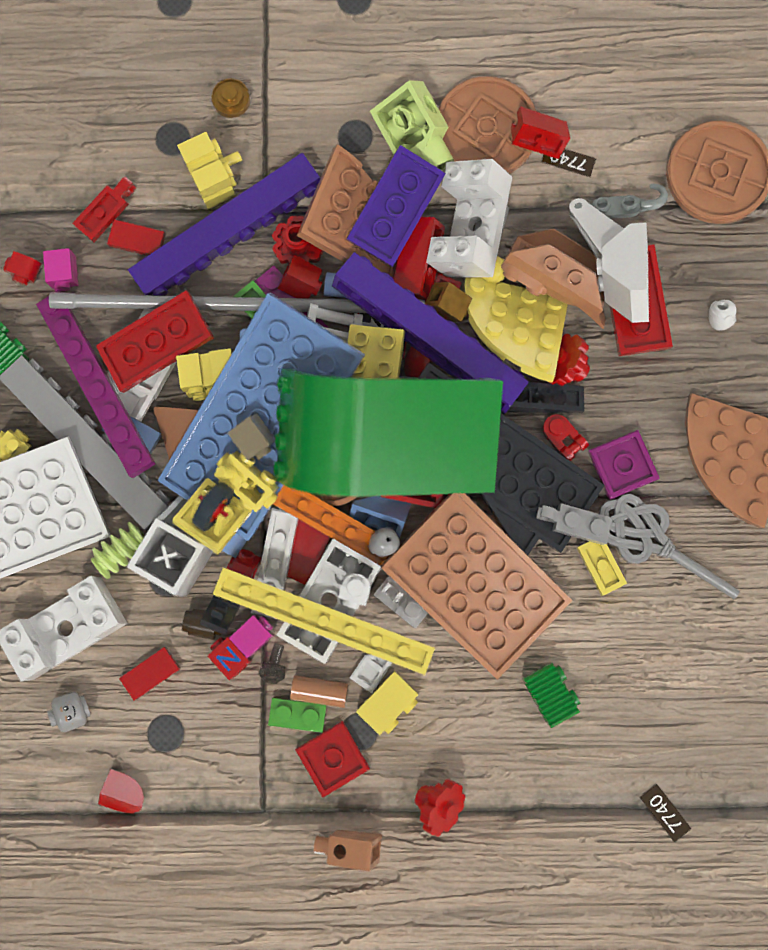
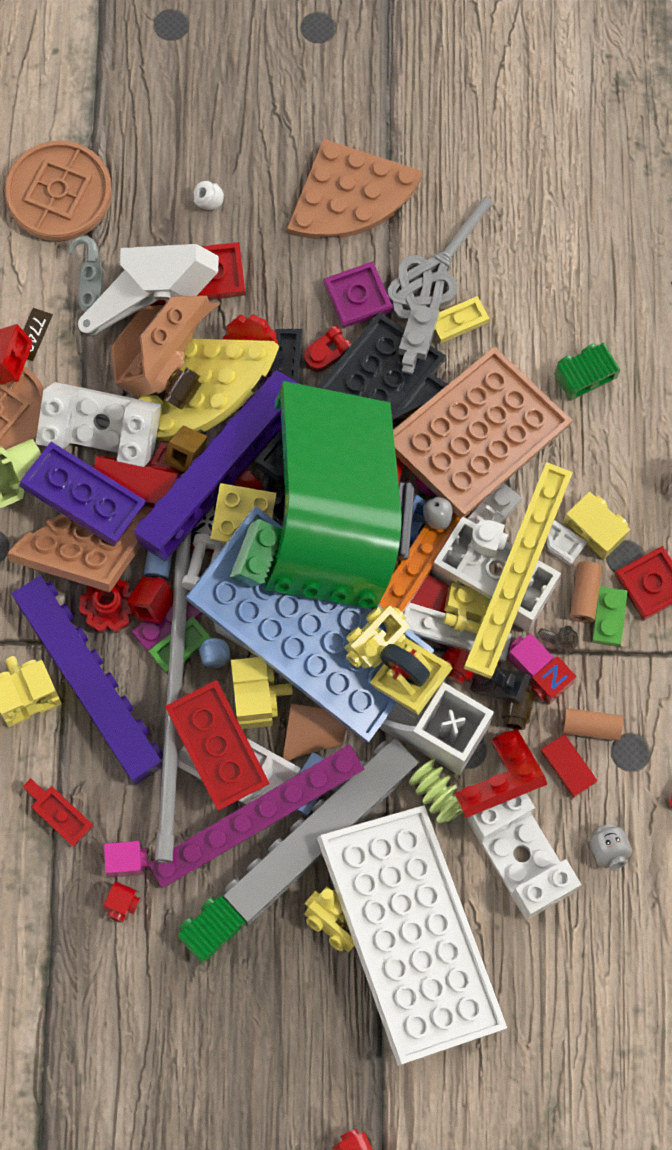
camera: 95 degrees left, 10 degrees down
(117, 622) = (520, 777): none -> red plate
(135, 238) = (92, 779): red tile -> none
(187, 696) = (592, 724): none -> nougat piece
(252, 437) = (333, 626): dark tan brick -> none
(298, 571) = (465, 604): none -> light yellow plate
(309, 355) = (256, 553): none -> green brick
(374, 508) = (406, 493): none -> axle
(507, 294) = (182, 388): none -> dark brown brick

